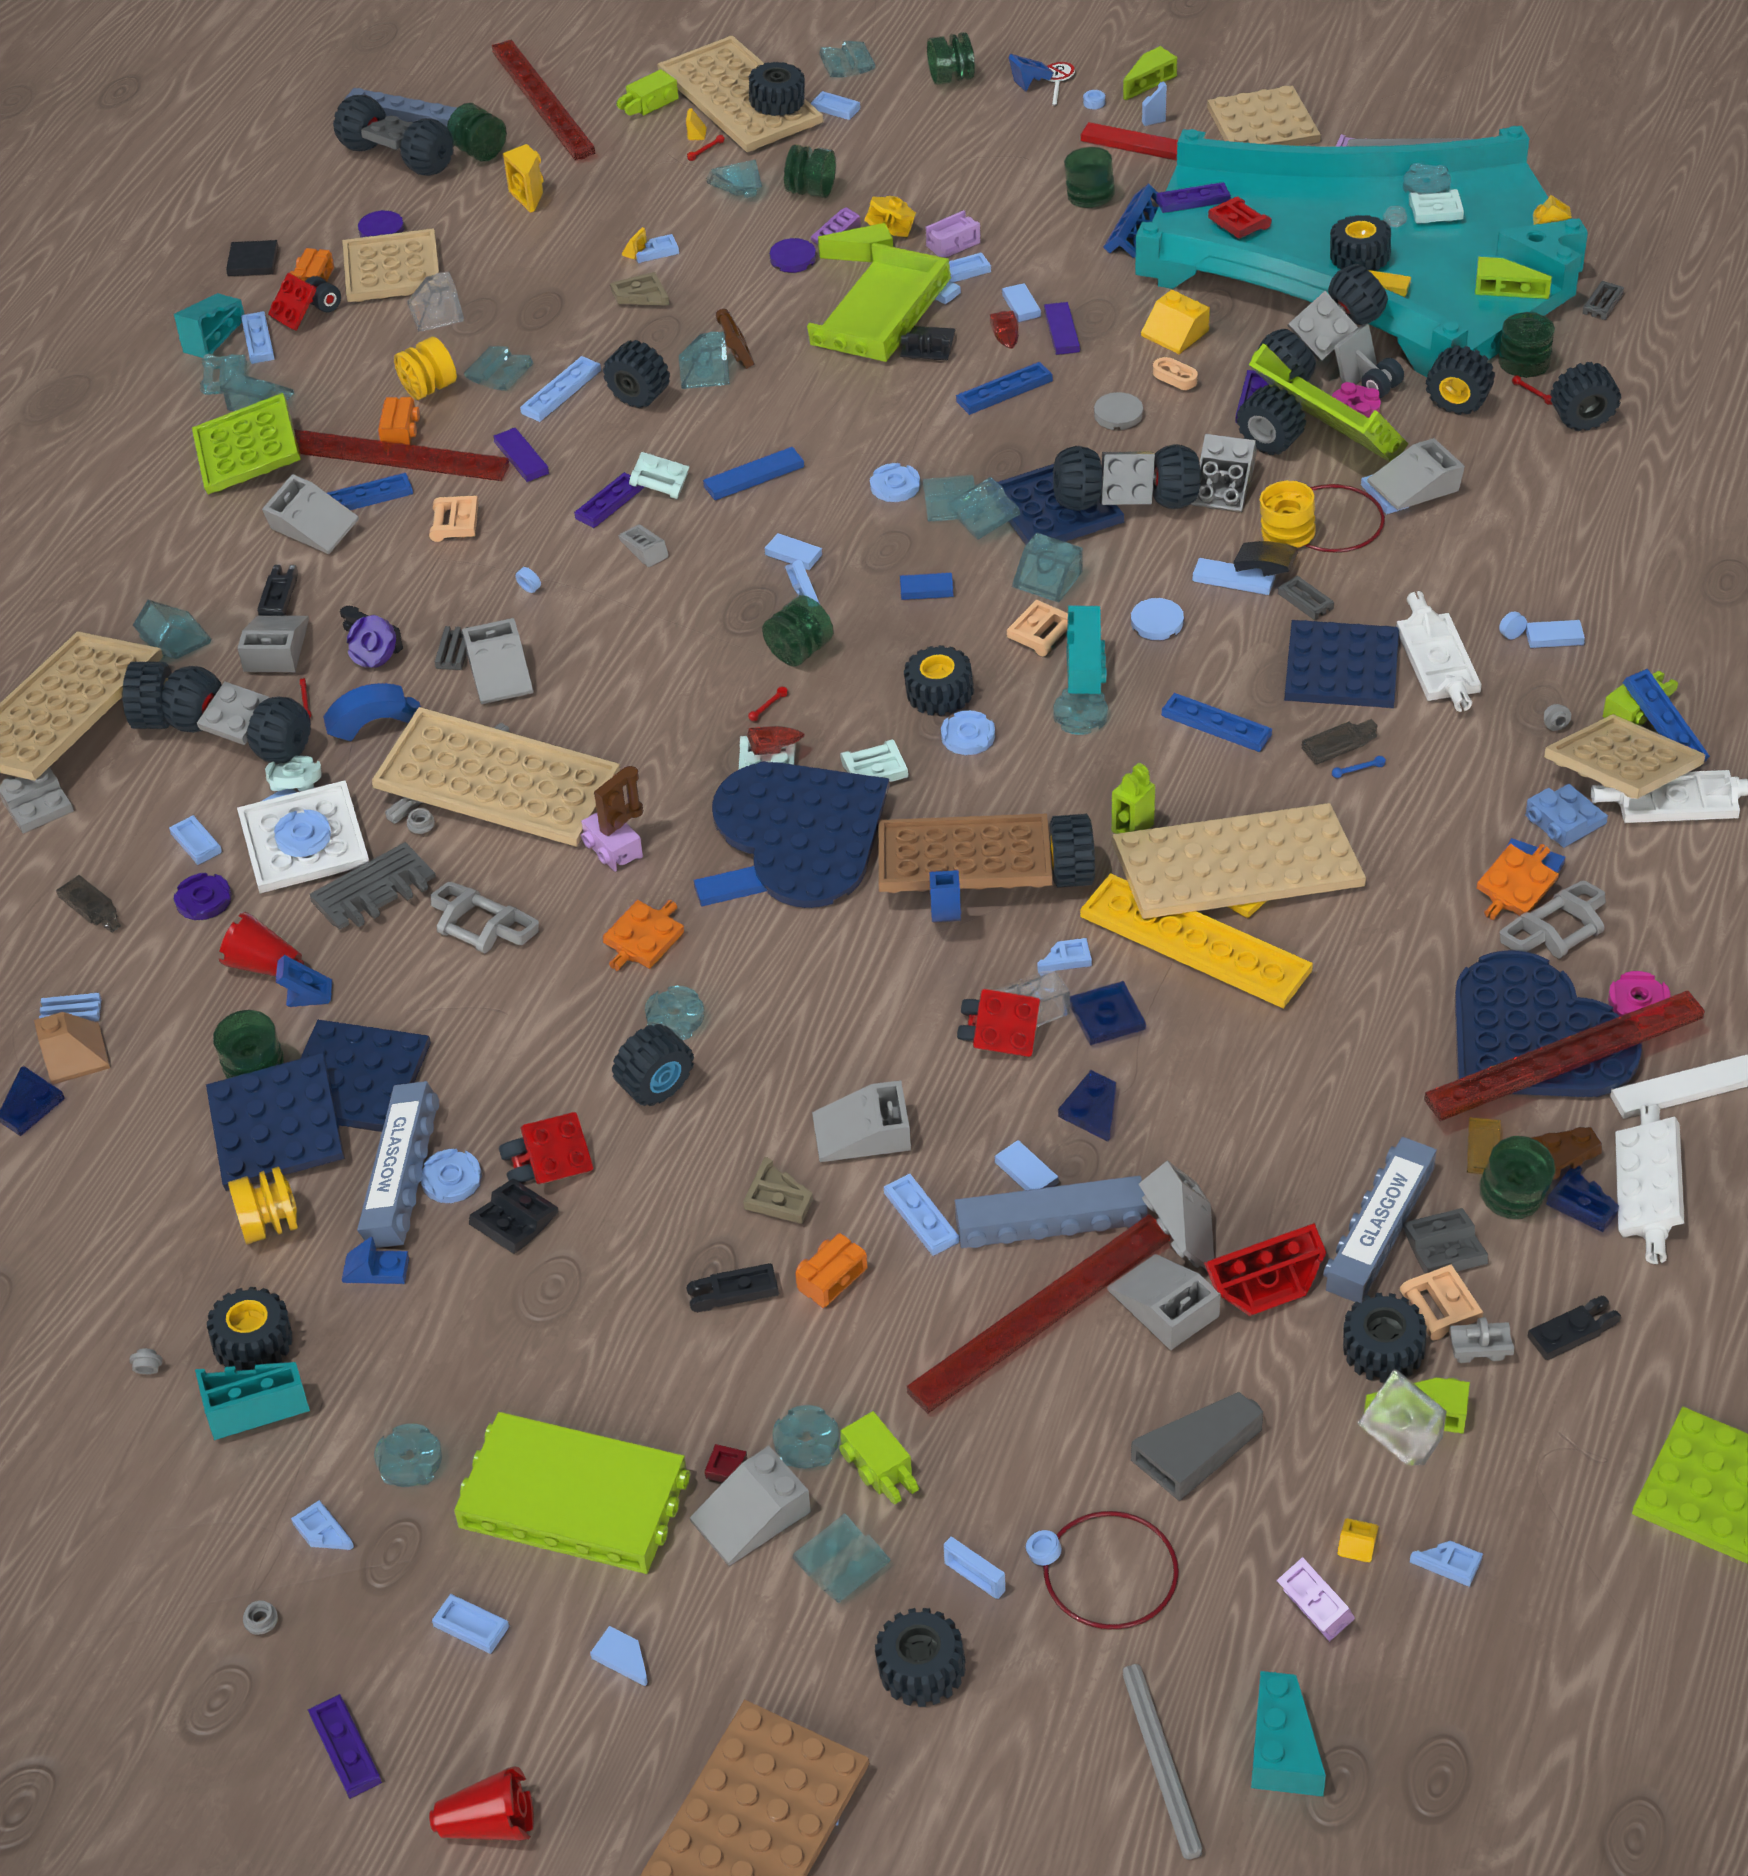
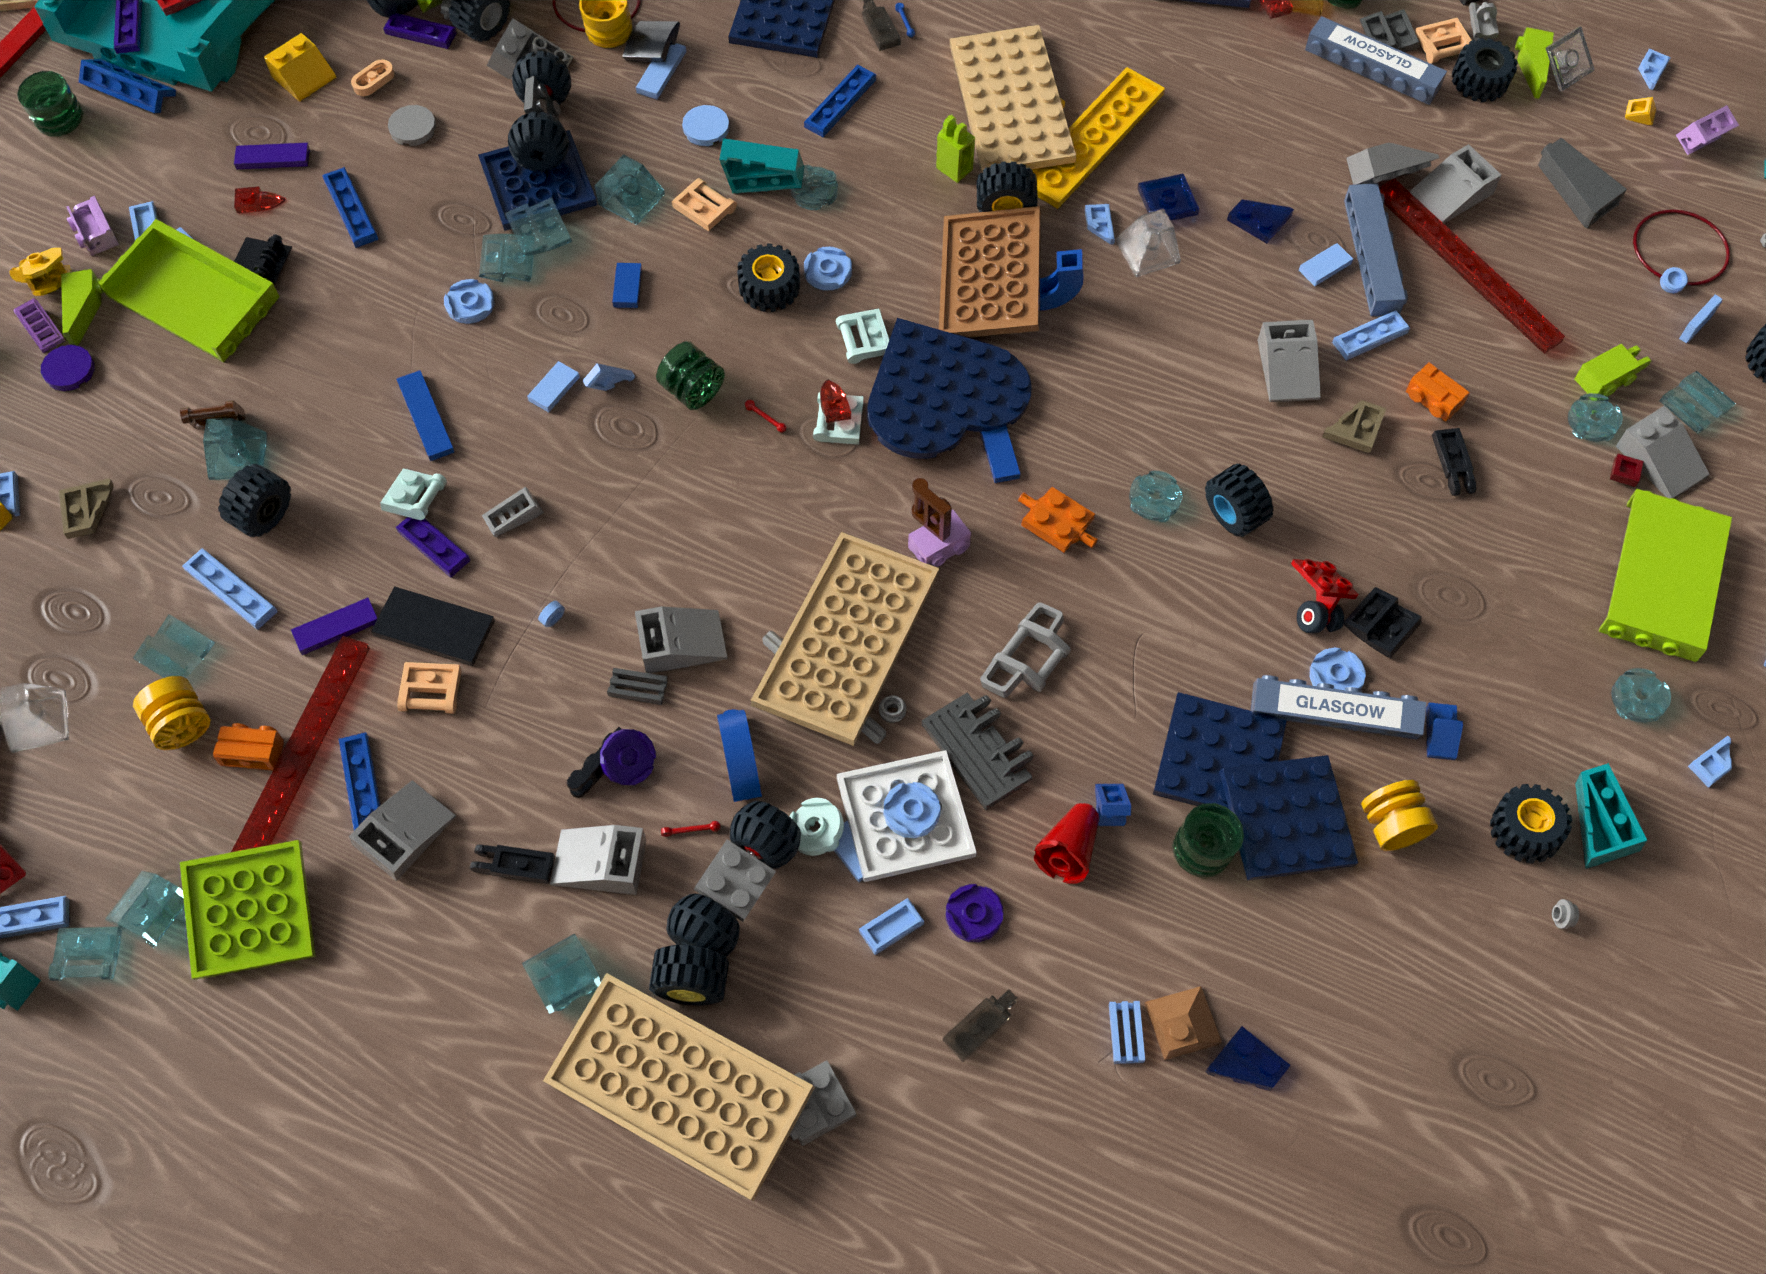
camera: 90 degrees left, 15 degrees up
(520, 512) = (433, 626): none -> black tile
(1000, 1022) = (1190, 259): red plate -> none
(1021, 302) = (219, 183): light blue tile -> none
(1269, 1270) = (1424, 124): red wedge -> none
(1302, 599) = (699, 27): dark grey tile -> none

